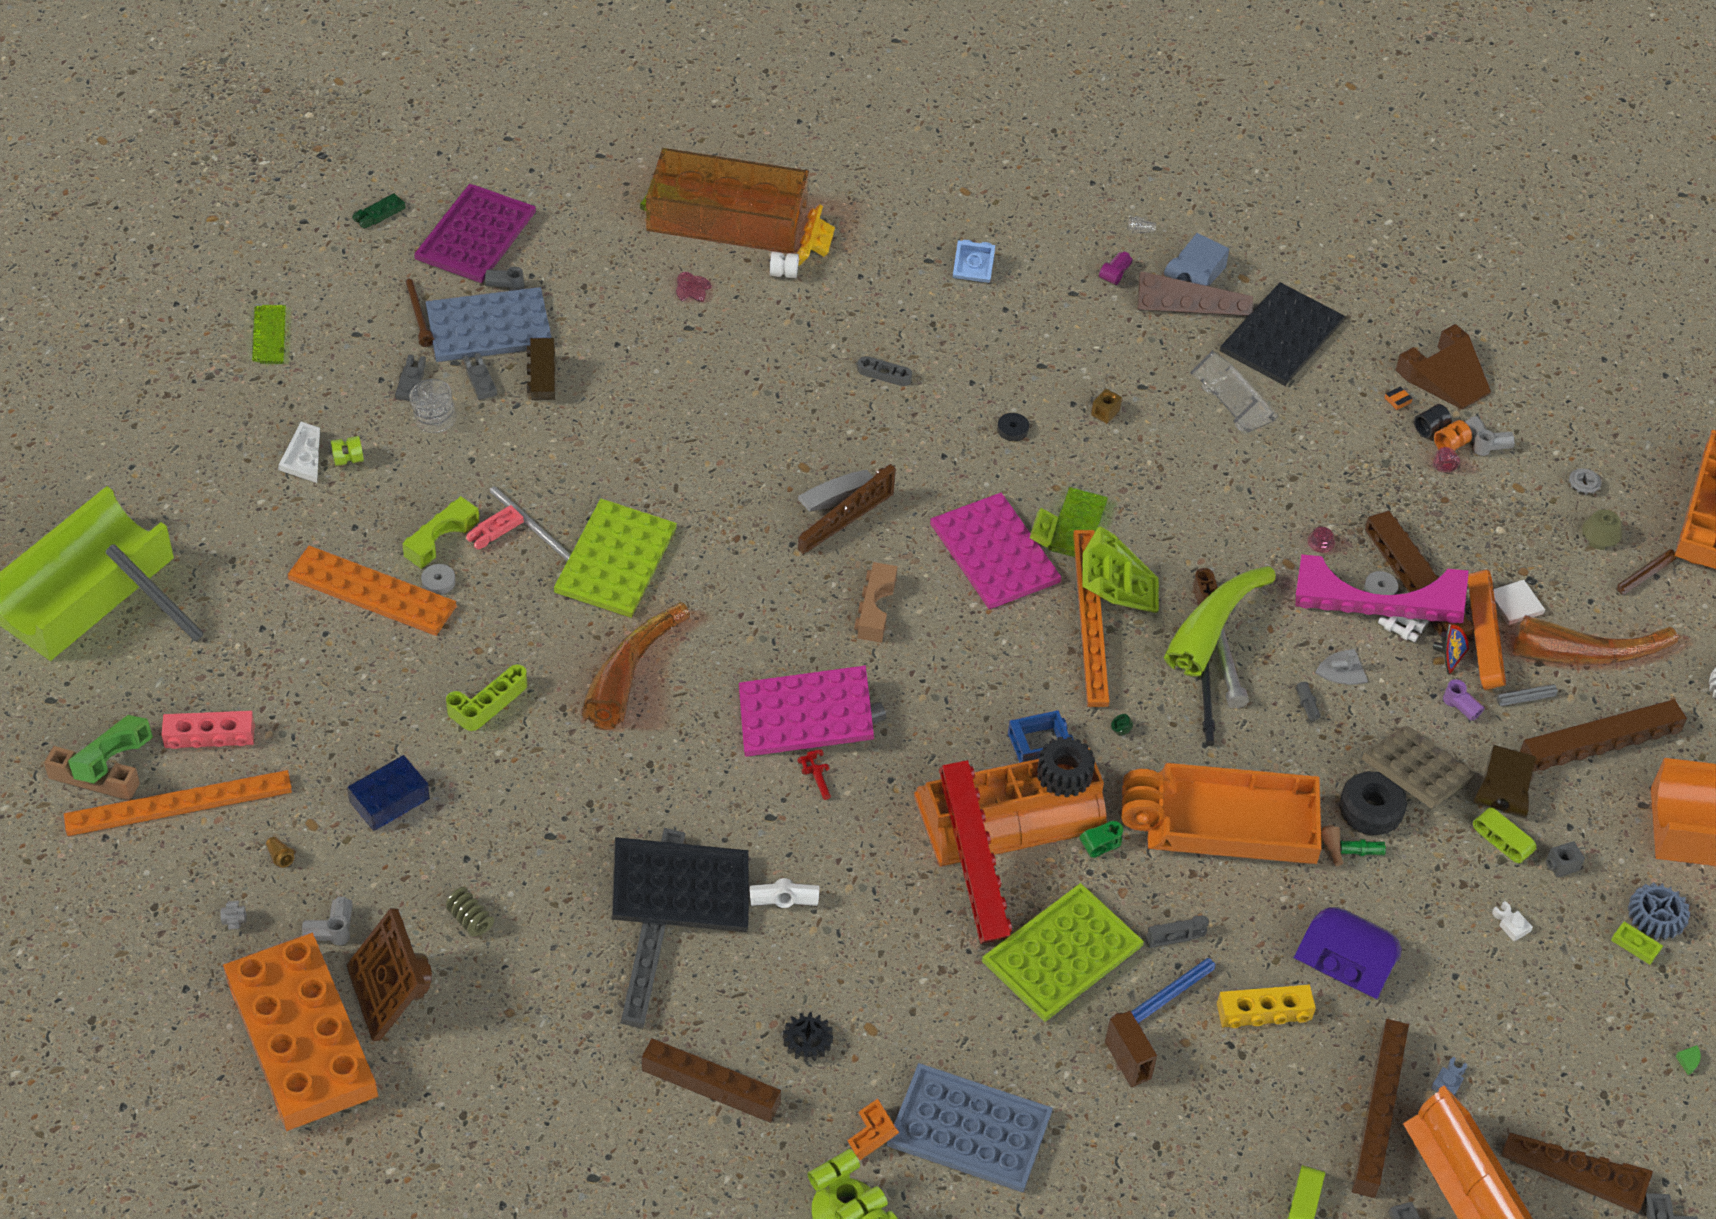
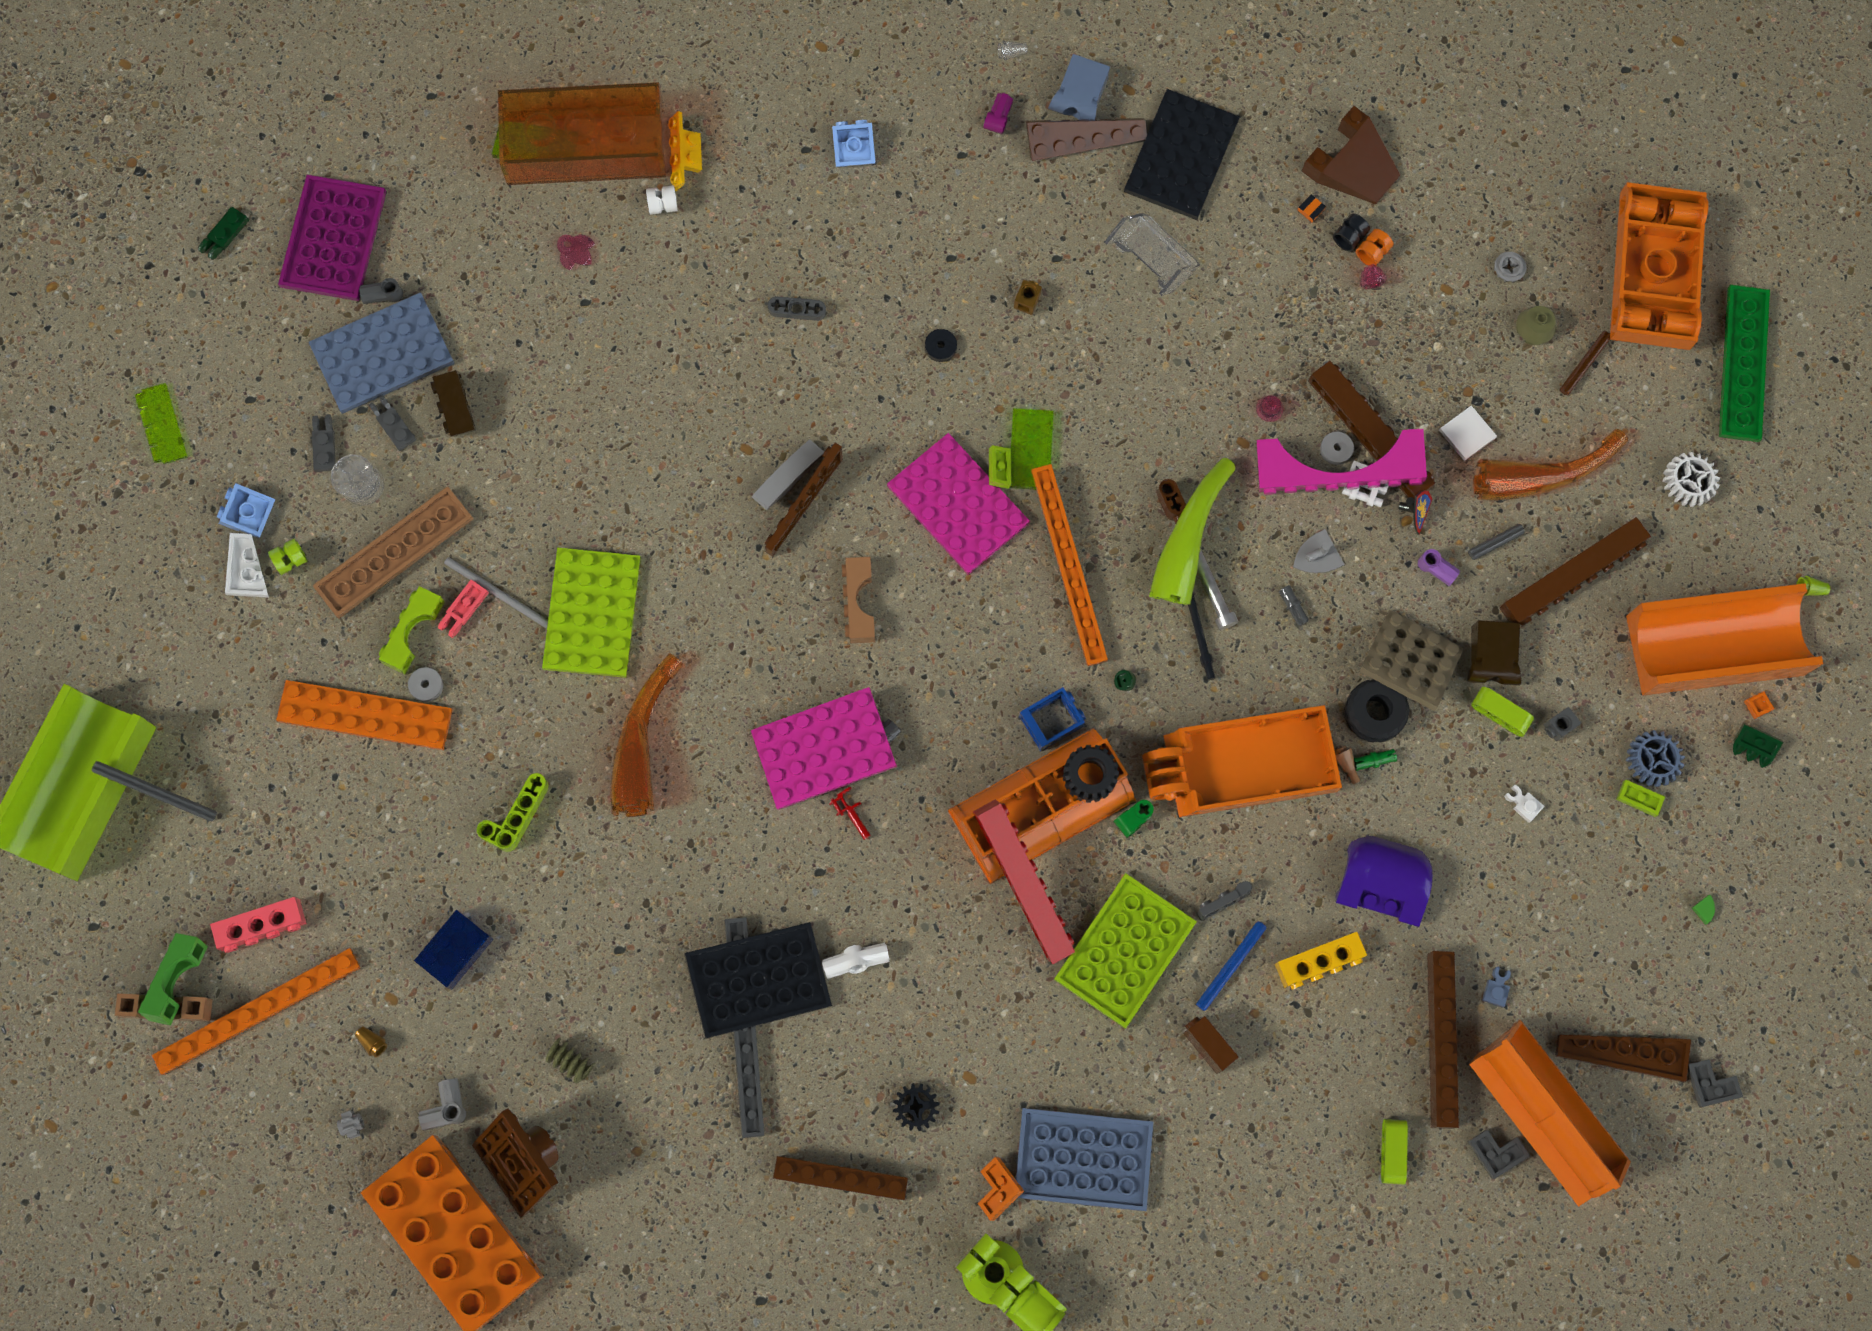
camera: 15 degrees left, 25 degrees up
(321, 408) = (245, 510): none -> light blue plate
(425, 336) = (322, 387): reddish brown piece -> none
(444, 470) = (392, 552): none -> medium nougat plate
(1118, 574) = (1086, 514): lime wedge -> none
(1486, 440) = (1400, 237): light grey piece -> none
(1486, 630) = (1446, 478): orange beam -> none

